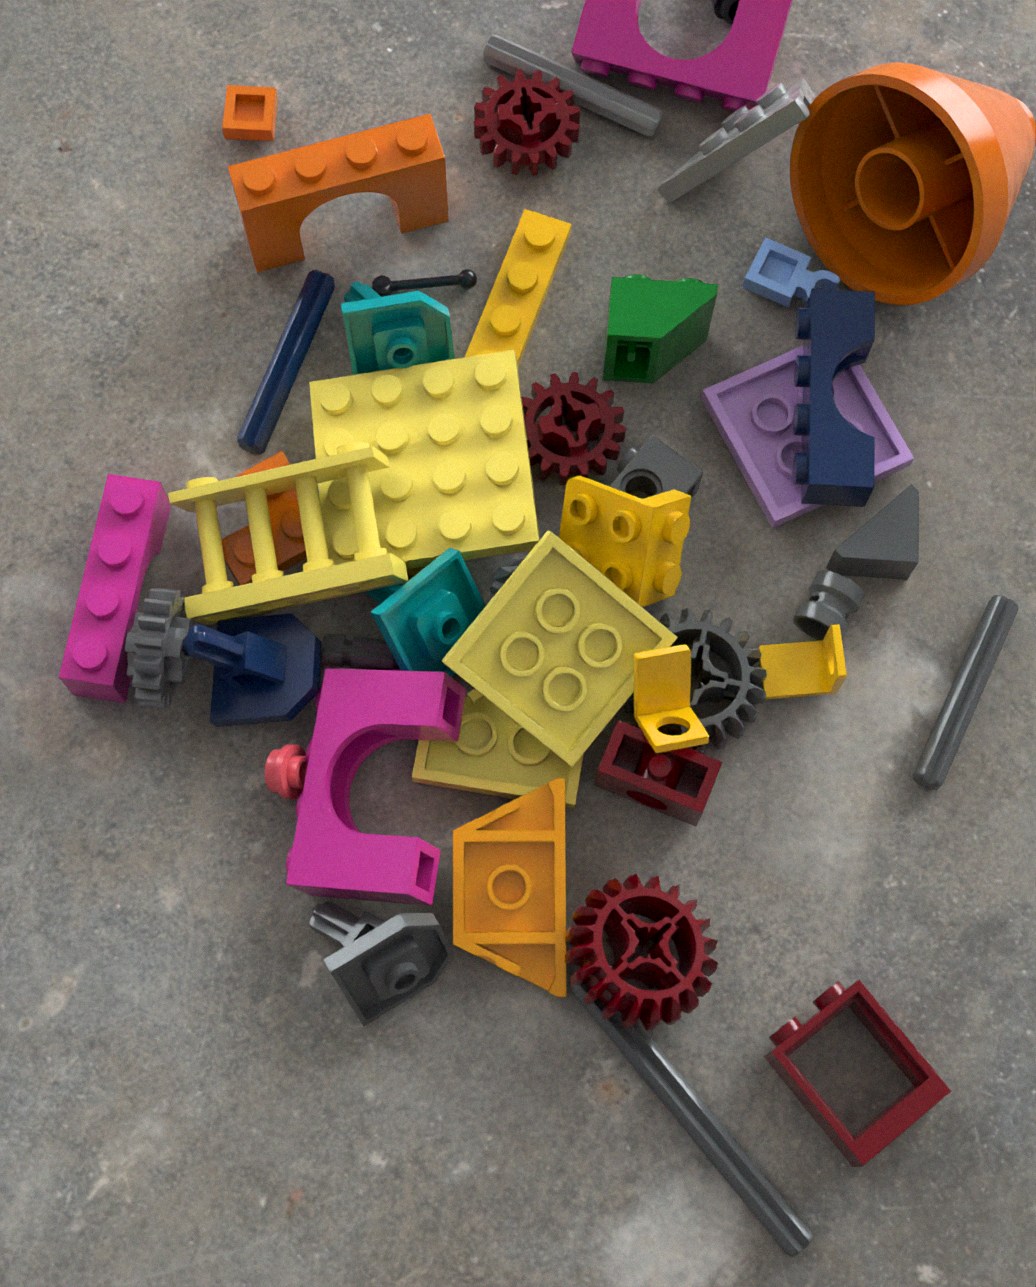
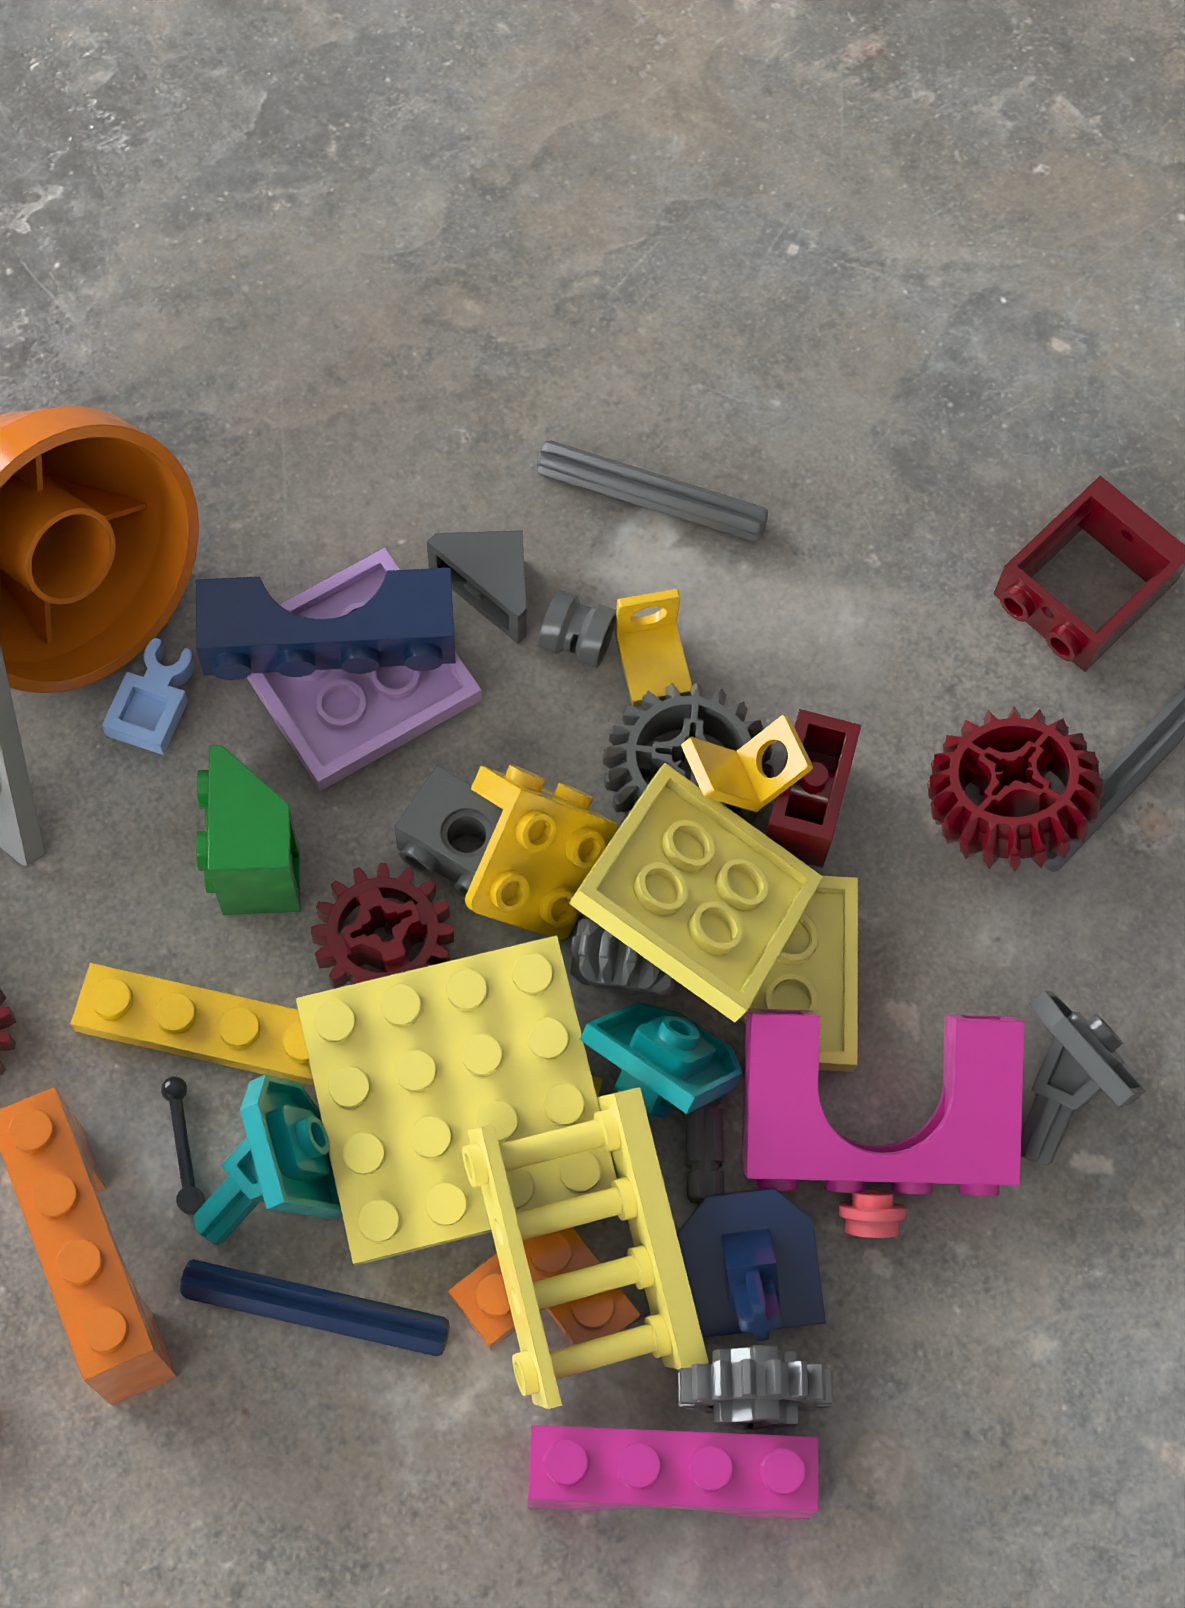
camera: 100 degrees left, 5 degrees down
(514, 887) = (960, 934): light orange wing -> none

